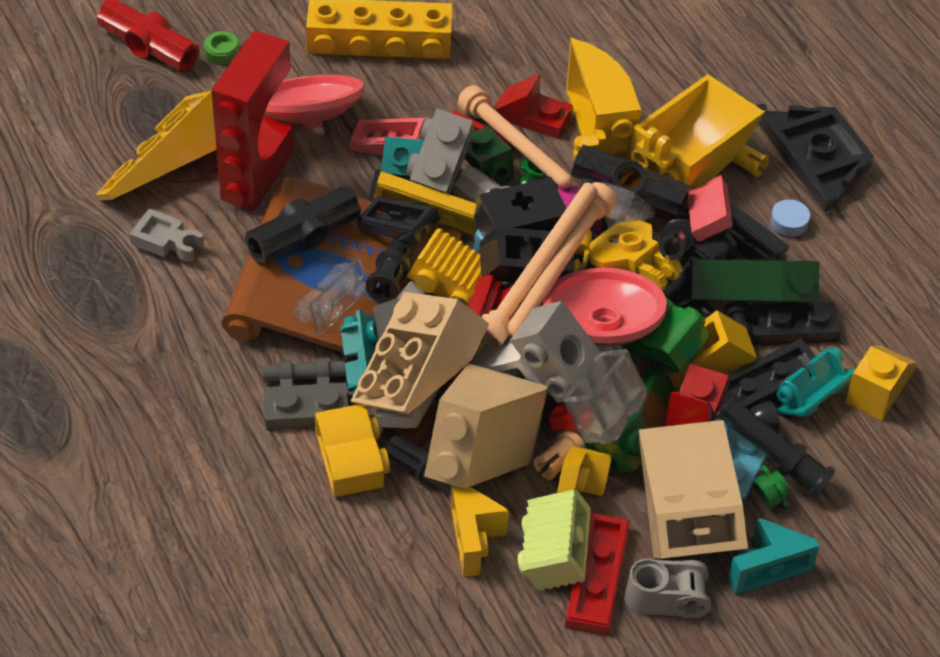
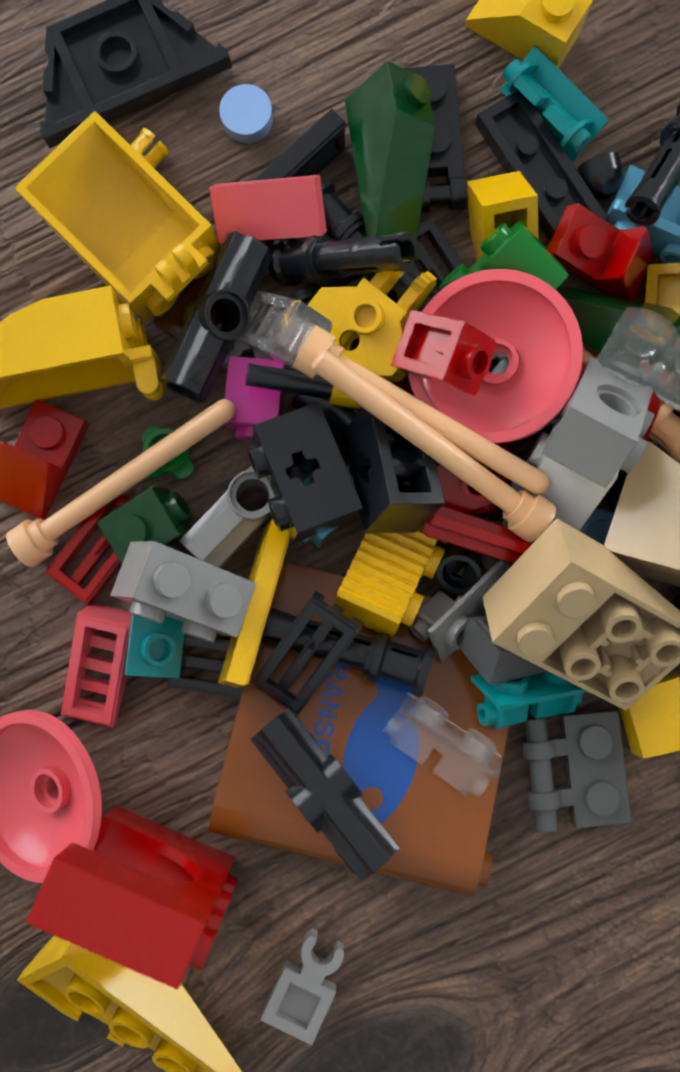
camera: 85 degrees left, 35 degrees up
(601, 272) = (444, 351): none -> red bracket

